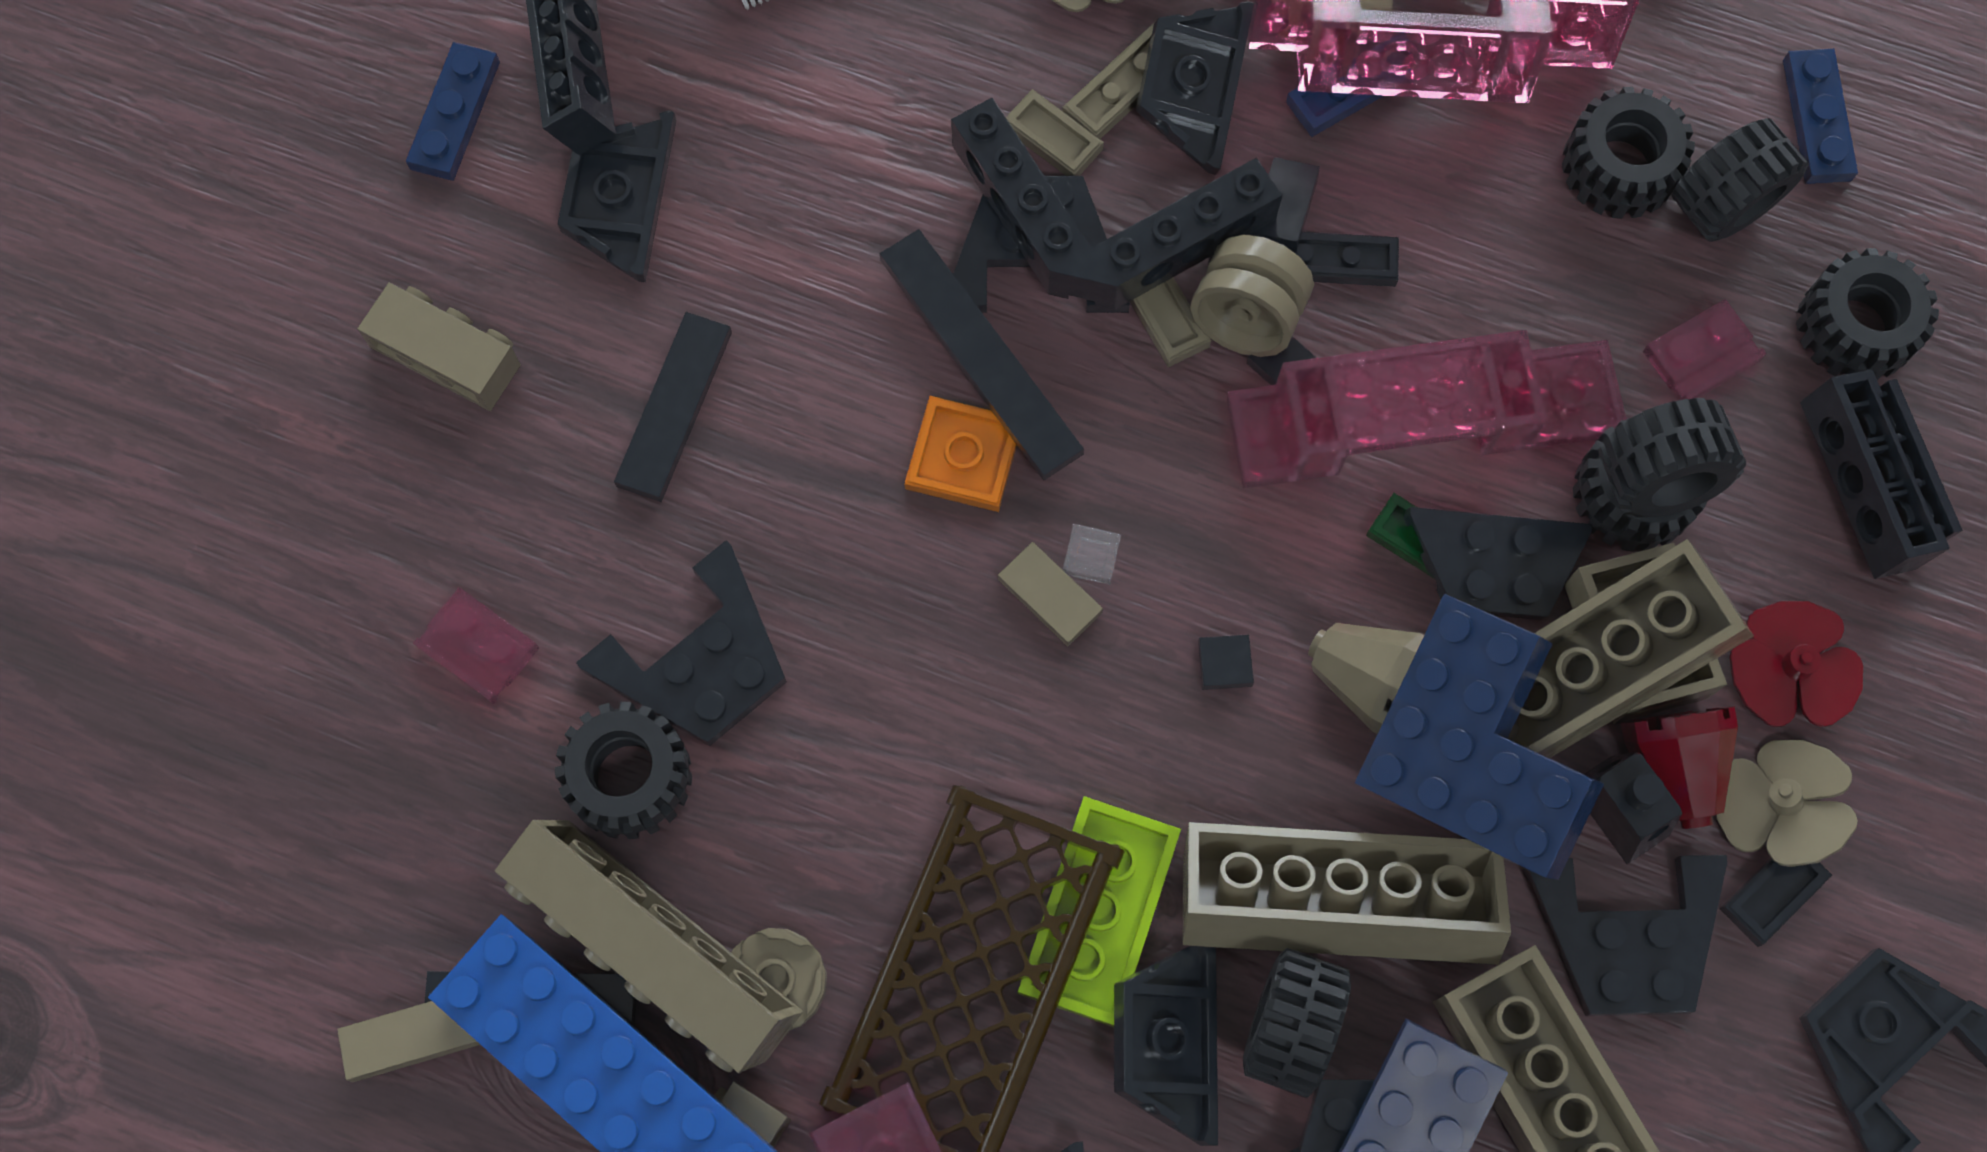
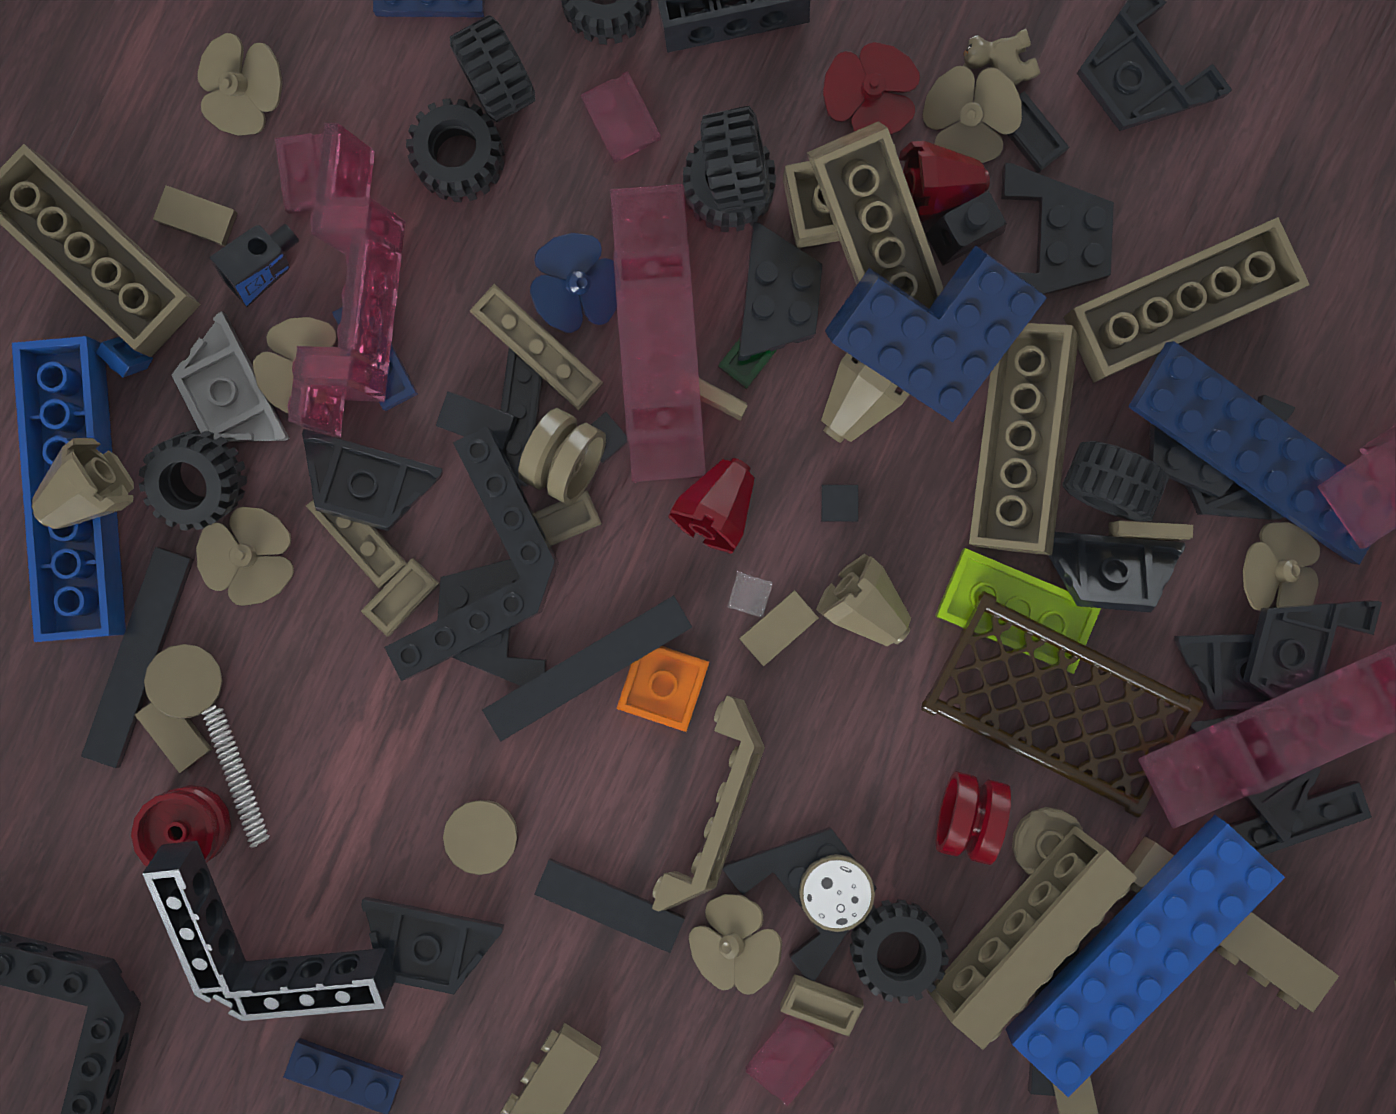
camera: 85 degrees left, 15 degrees up
(547, 679) = (821, 1005): none -> dark tan tile
(611, 564) = (739, 956): none -> dark tan piece
(700, 681) = (836, 893): none -> white tile
(756, 246) = (480, 837): none -> dark tan tile
(810, 852) = (973, 818): none -> dark red wheel
(822, 541) = (735, 722): none -> dark tan slope
(1090, 699) = (866, 603): none -> dark tan cone
(1209, 496) = (717, 505): none -> dark red cone
(1230, 1092) = (1151, 530): none -> dark tan tile
(1349, 493) = (722, 400): none -> dark tan tile
(1388, 266) = (536, 347): none -> dark tan tile
(1454, 286) = (573, 272): none -> dark blue piece
(1874, 839) = (1003, 56): none -> dark tan animal

